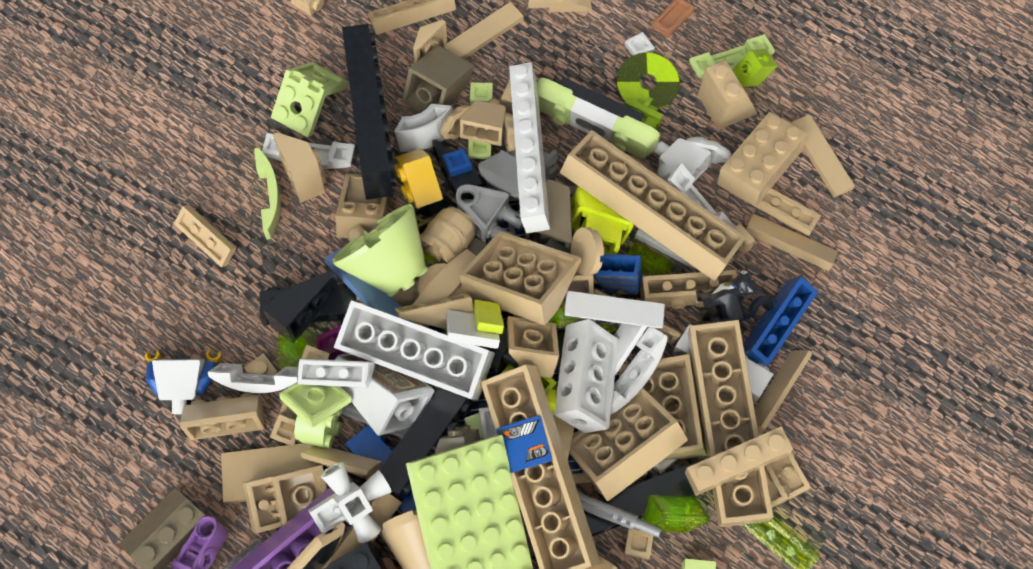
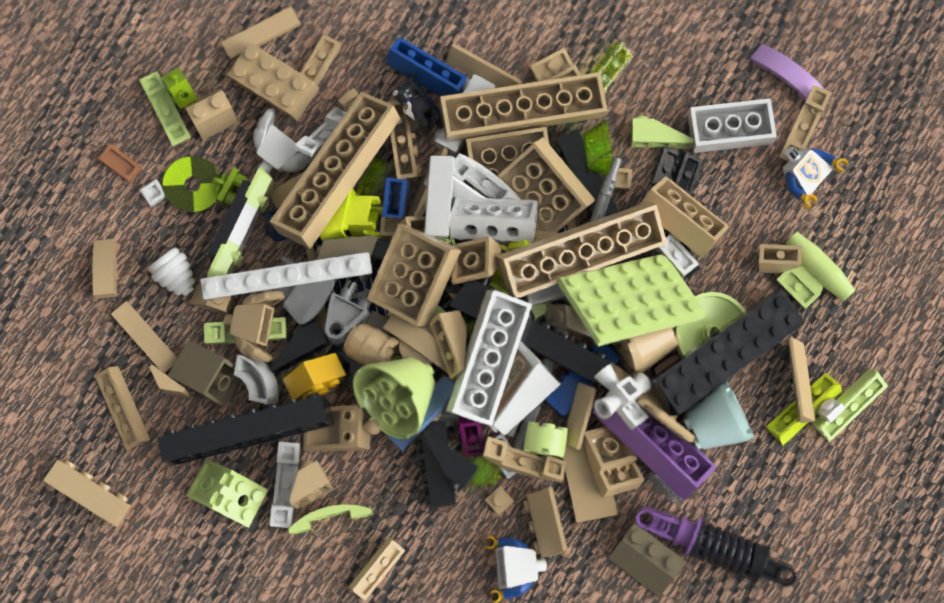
camera: 90 degrees left, 10 degrees up
(233, 377) = (516, 500): white slope -> none
(315, 402) = (532, 439): yellowish green tile -> none
(335, 373) = (512, 422): white slope -> none
(457, 162) = (296, 344): blue tile -> none
(463, 329) = (471, 307): white tile -> none
(488, 317) = (458, 296): neon yellow tile -> none
(525, 443) = (565, 258): blue sticker -> none
(550, 54) = (173, 272): none -> white piece
(589, 246) = (386, 219): tan tile -> none
(738, 461) = (561, 95): tan brick -> none
(791, 242) = (346, 60): tan slope -> none

